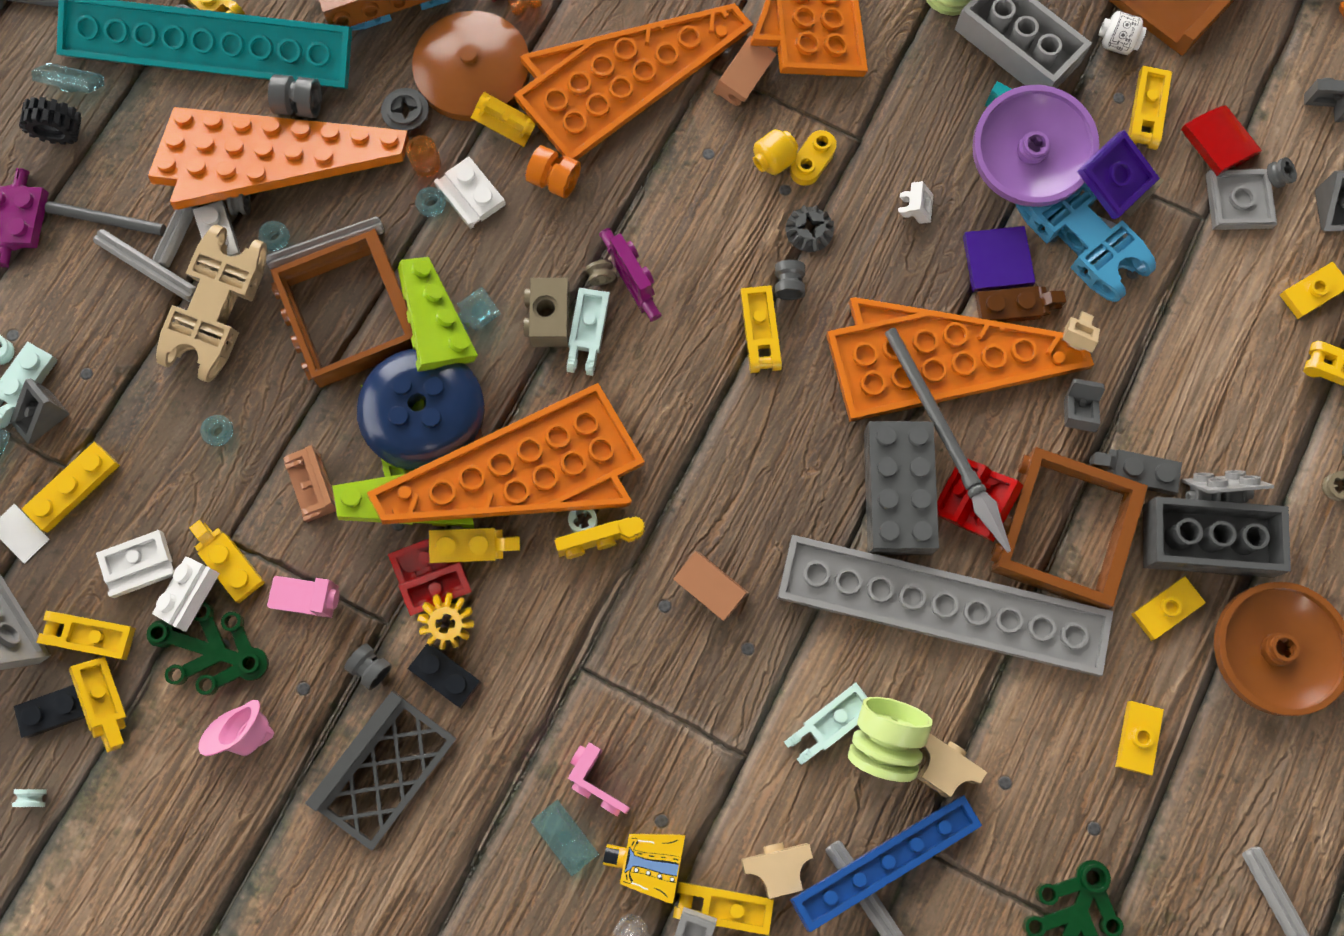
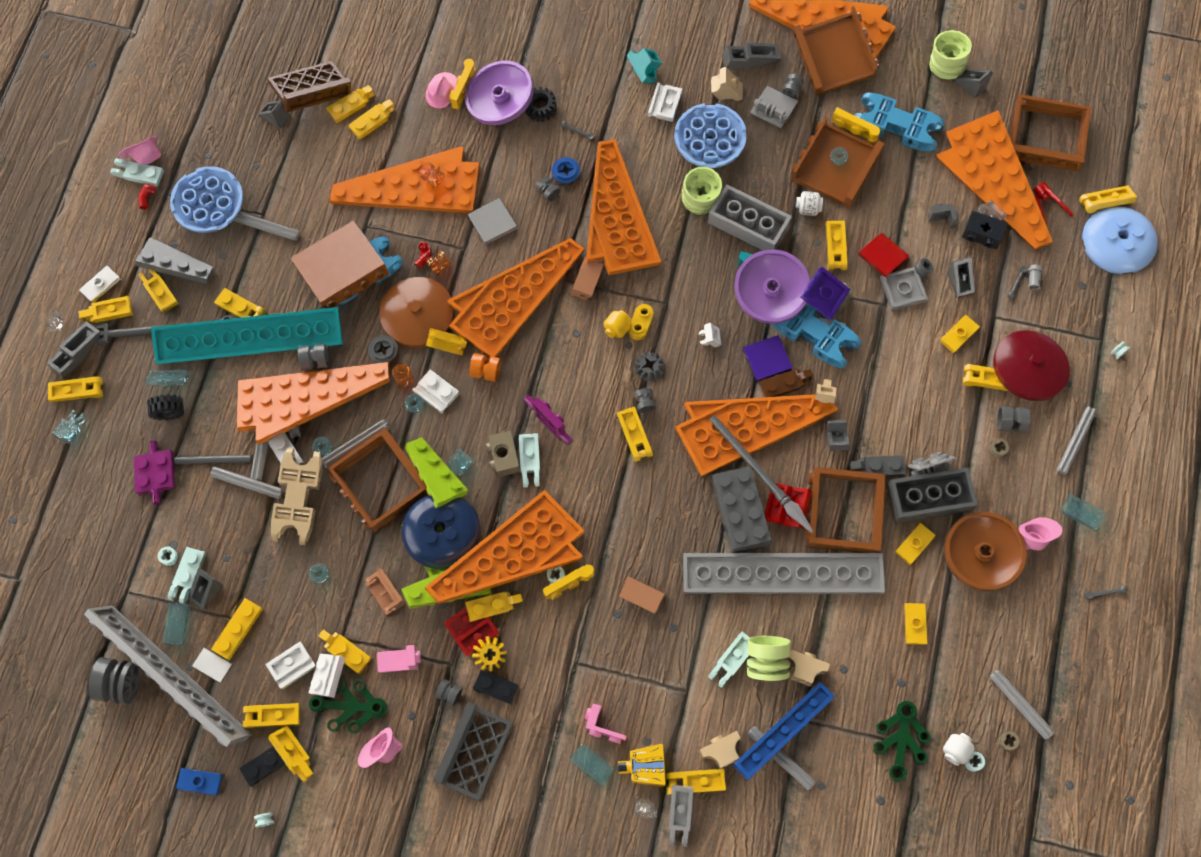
camera: 10 degrees left, 5 degrees down
(600, 272) = (529, 422): dark tan bush -> none

